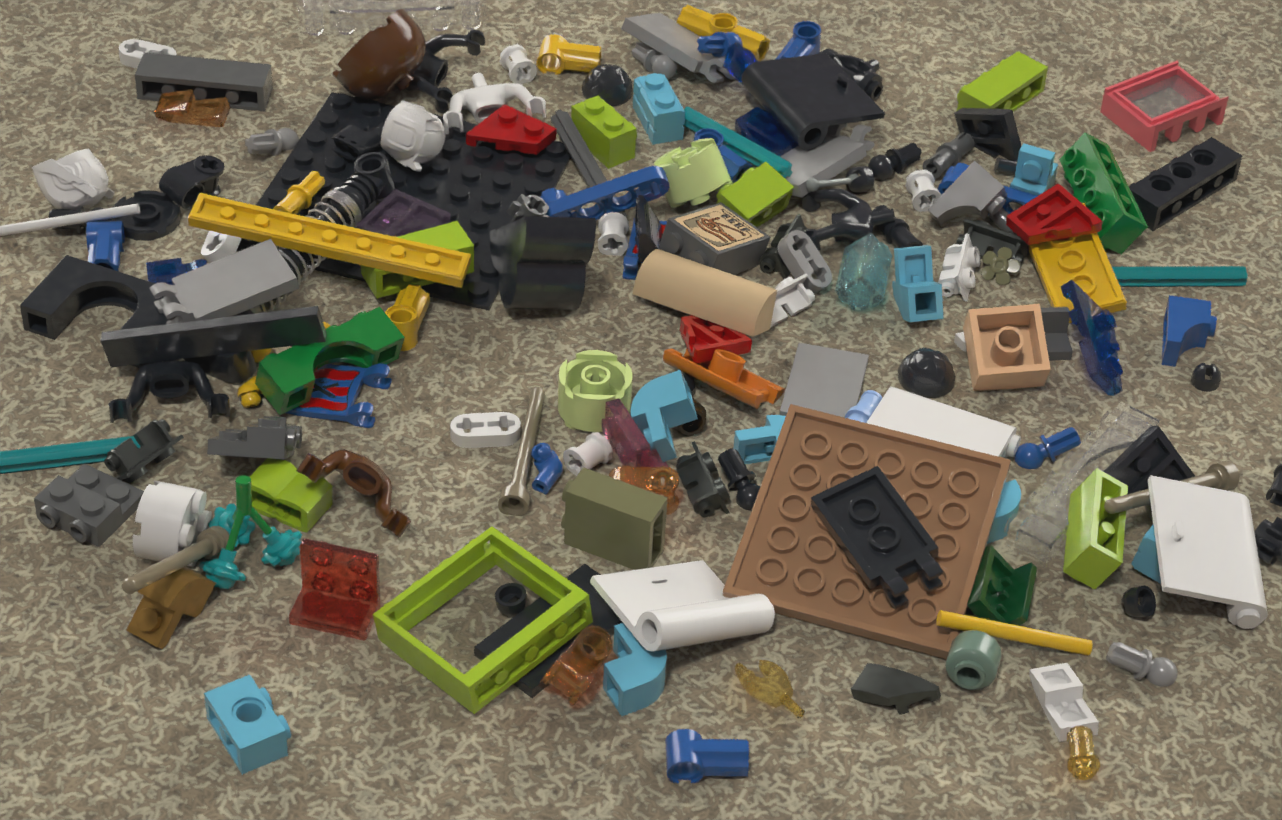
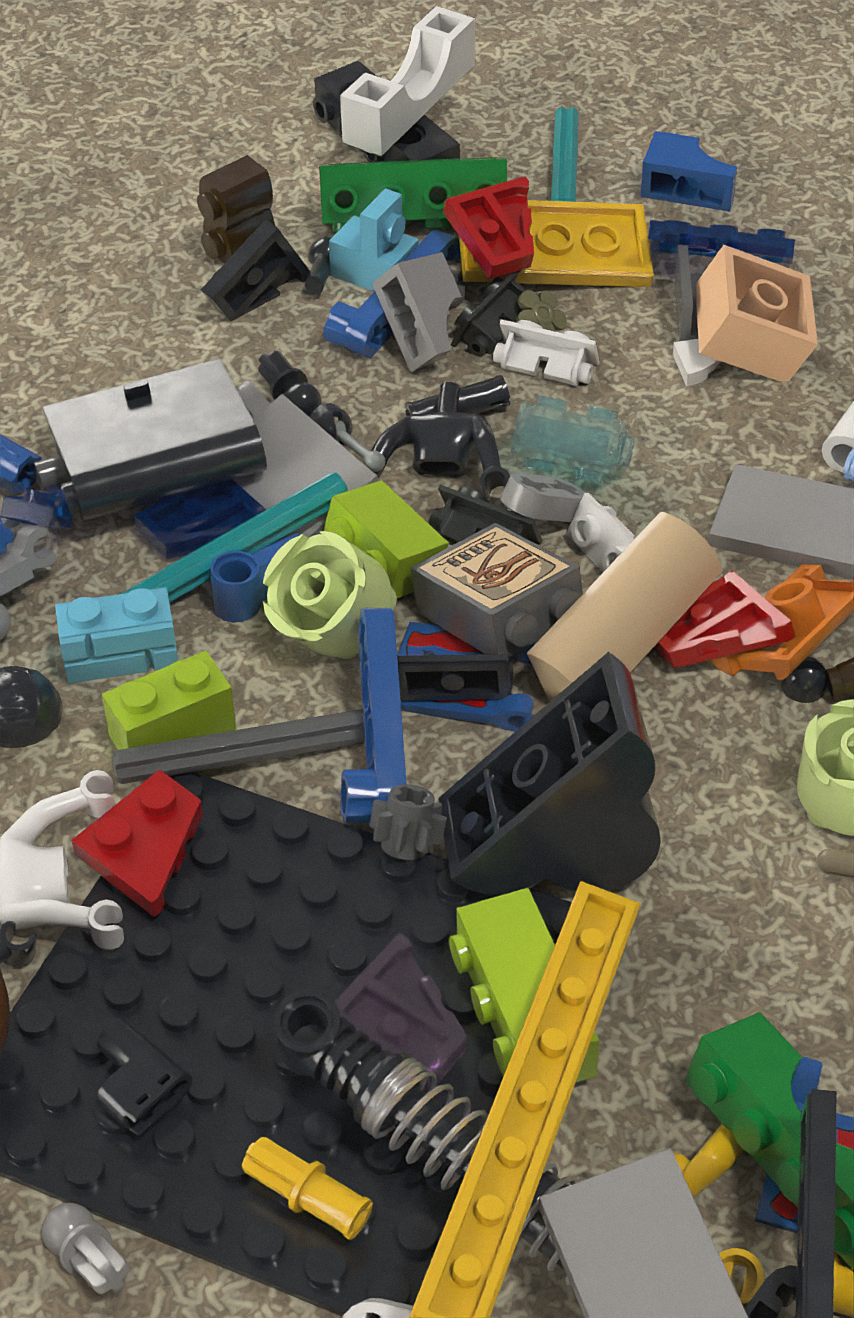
camera: 80 degrees left, 5 degrees up
(409, 313) = (652, 1027): yellow piece -> none
(412, 135) = (171, 974): white helmet -> none
(613, 229) = (440, 725): white bush -> none
(860, 72) = (29, 422): black piece -> none
(914, 288) = (619, 386): medium azure brick -> none
(925, 188) = (356, 374): white bush -> none
(926, 373) = (767, 415): black piece -> none
(949, 154) = (283, 330): dark grey pin -> none
(1005, 85) = (144, 255): lime brick -> none
(1043, 113) = (233, 206): none -> dark brown brick
(1155, 153) = (382, 110): none -> white arch
(1161, 102) = (213, 117): coral window -> none
(1199, 376) = (762, 175): black hinge -> none

